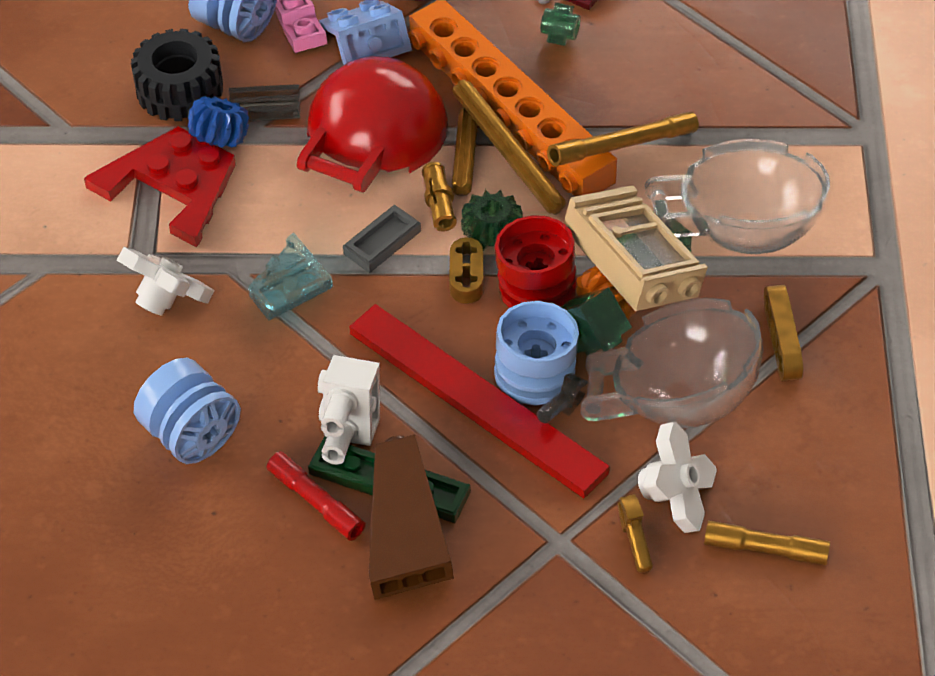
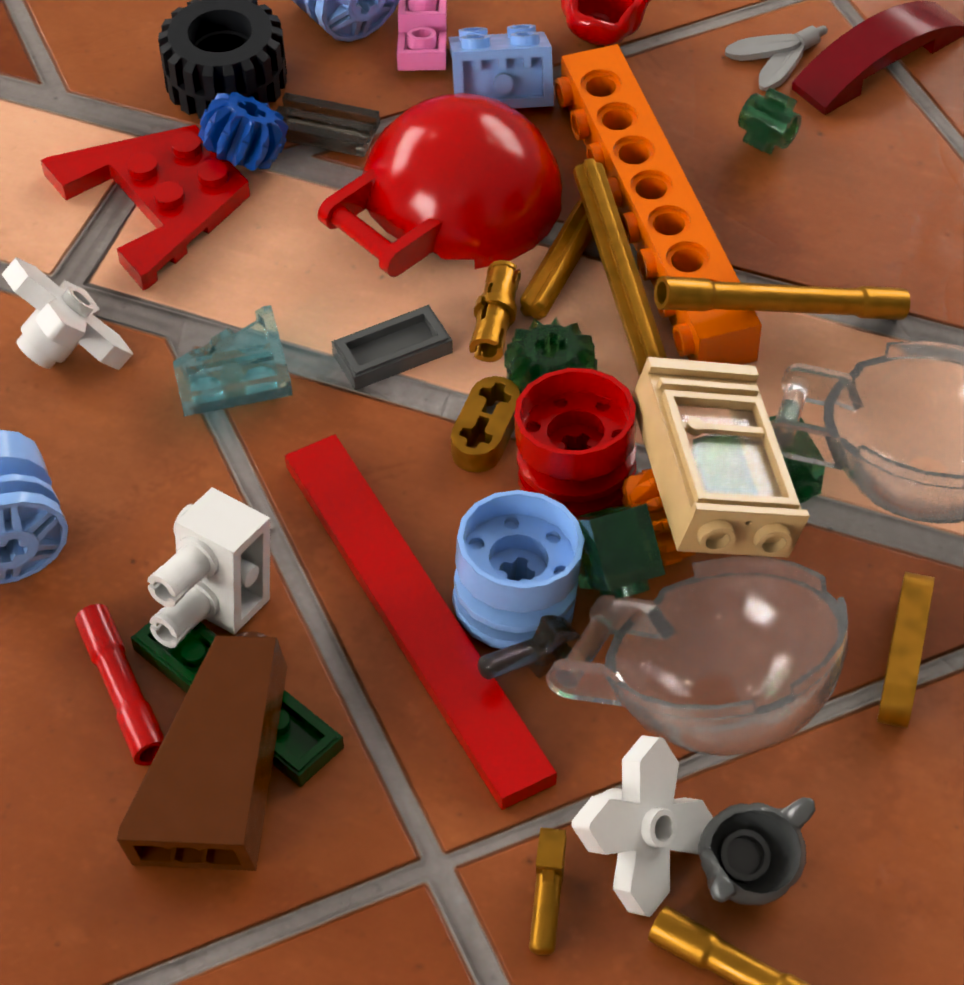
camera: 20 degrees right, 0 degrees up
(747, 472) = (754, 851): none -> dark grey hair

